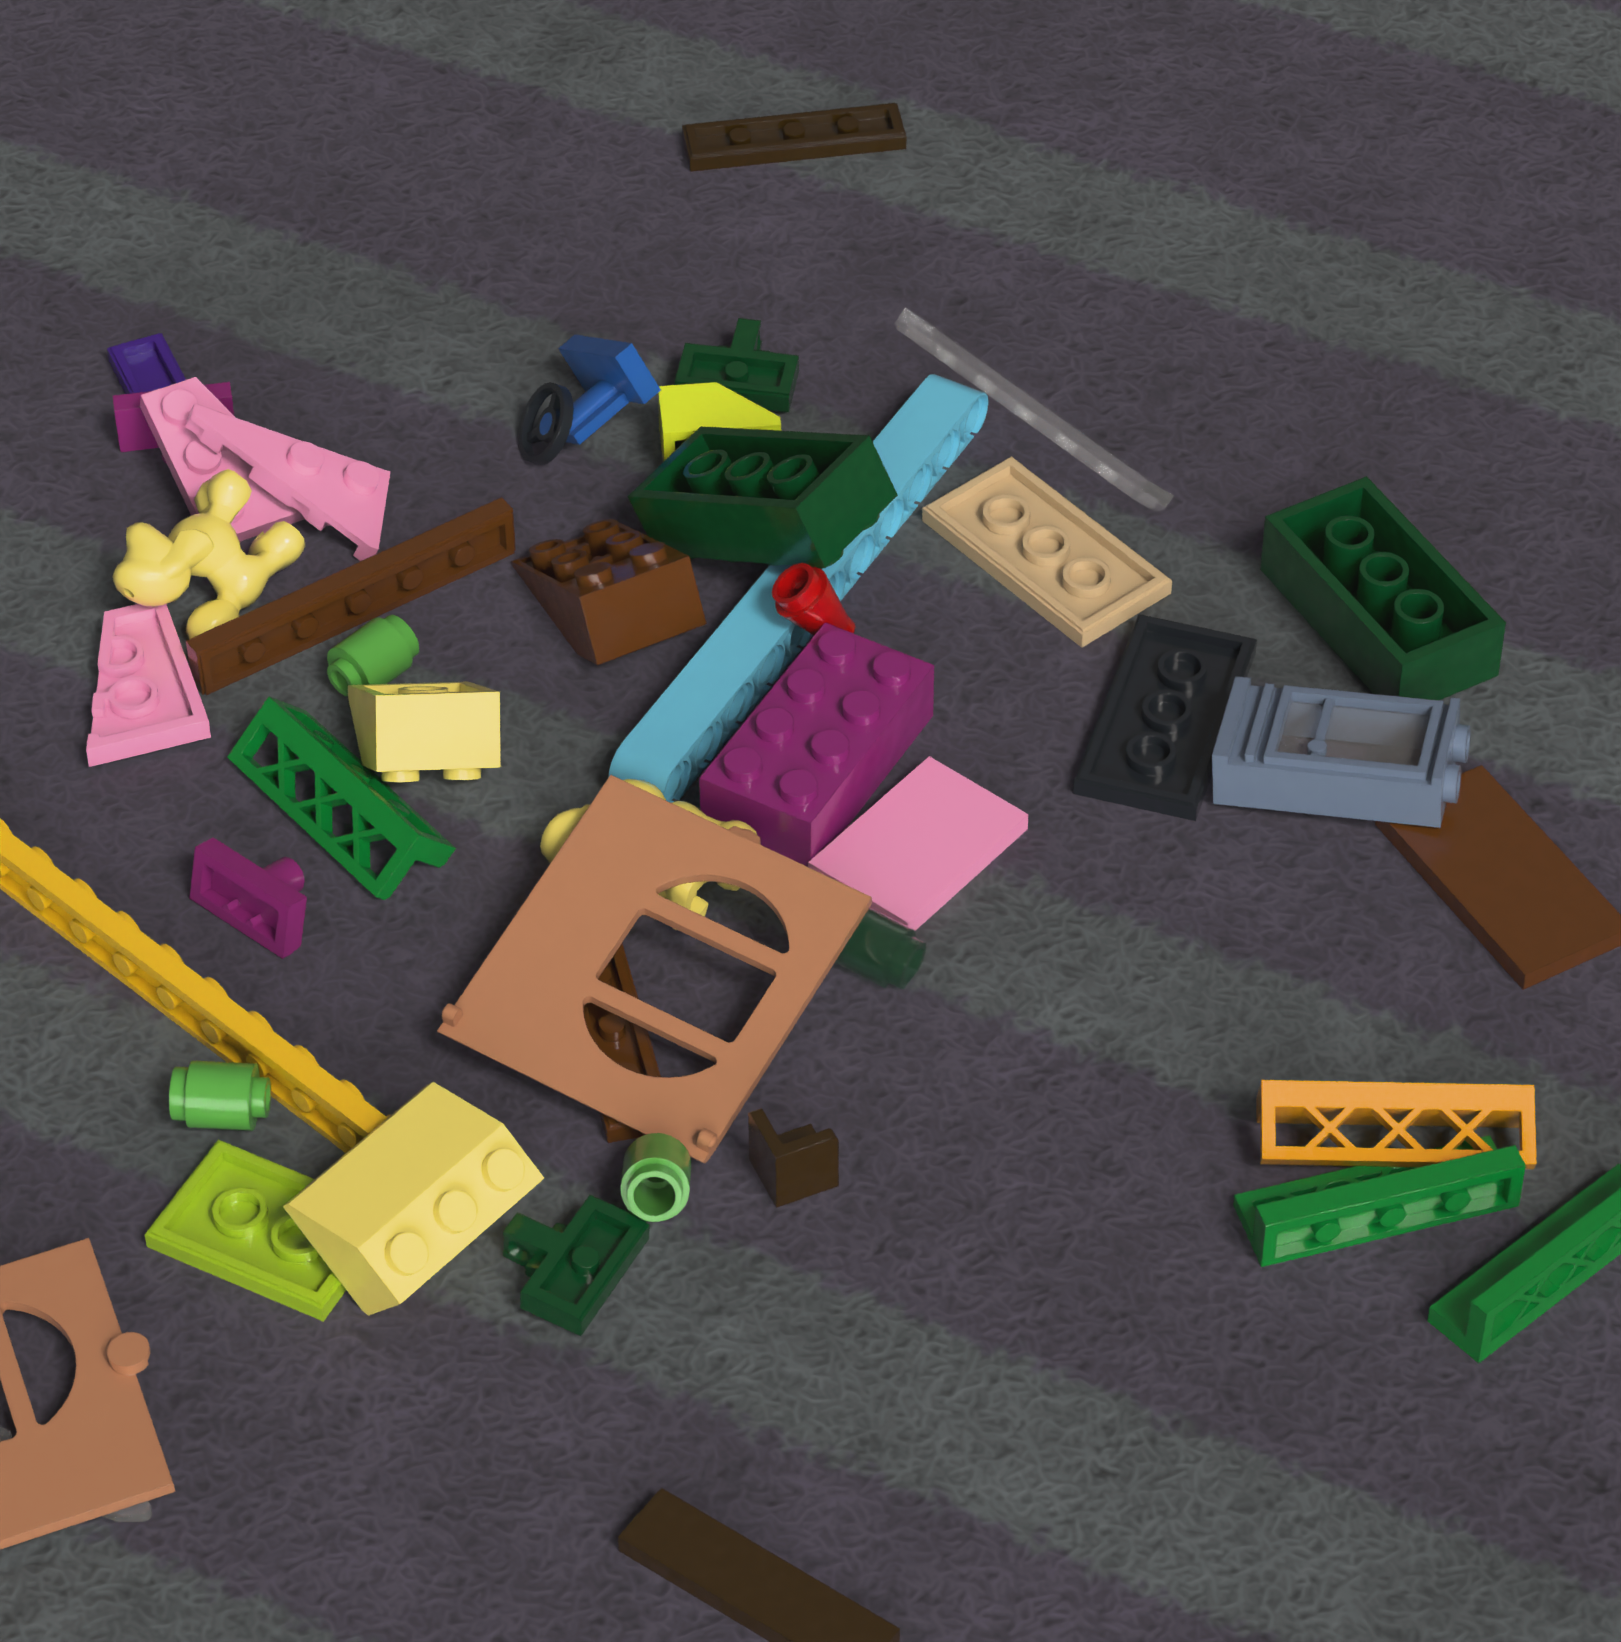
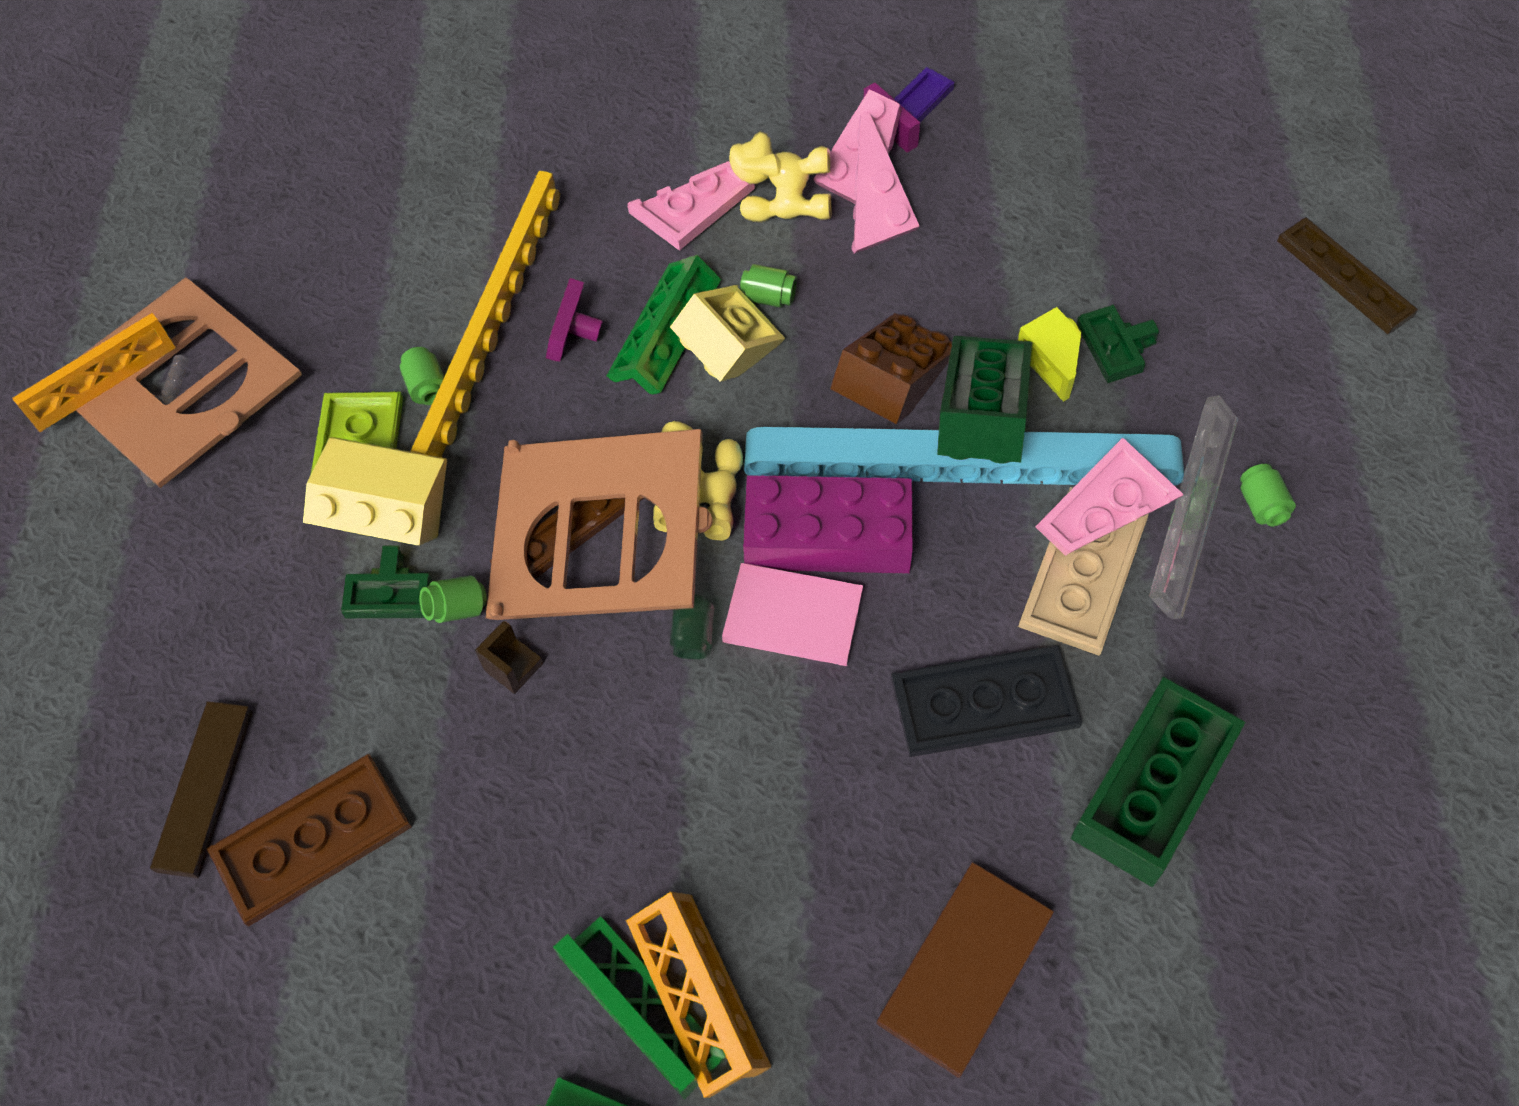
camera: 65 degrees right, 15 degrees up
(351, 596) = (812, 256): reddish brown tile -> none
(611, 378) = (1046, 290): blue piece -> none
(809, 600) = (920, 463): red cone -> none
(922, 1485) = (308, 839): none -> reddish brown tile
(981, 467) = (1107, 498): none -> bright pink wing
(1063, 345) = (1267, 495): none -> bright green brick
(1339, 753) = (997, 818): sand blue door -> none

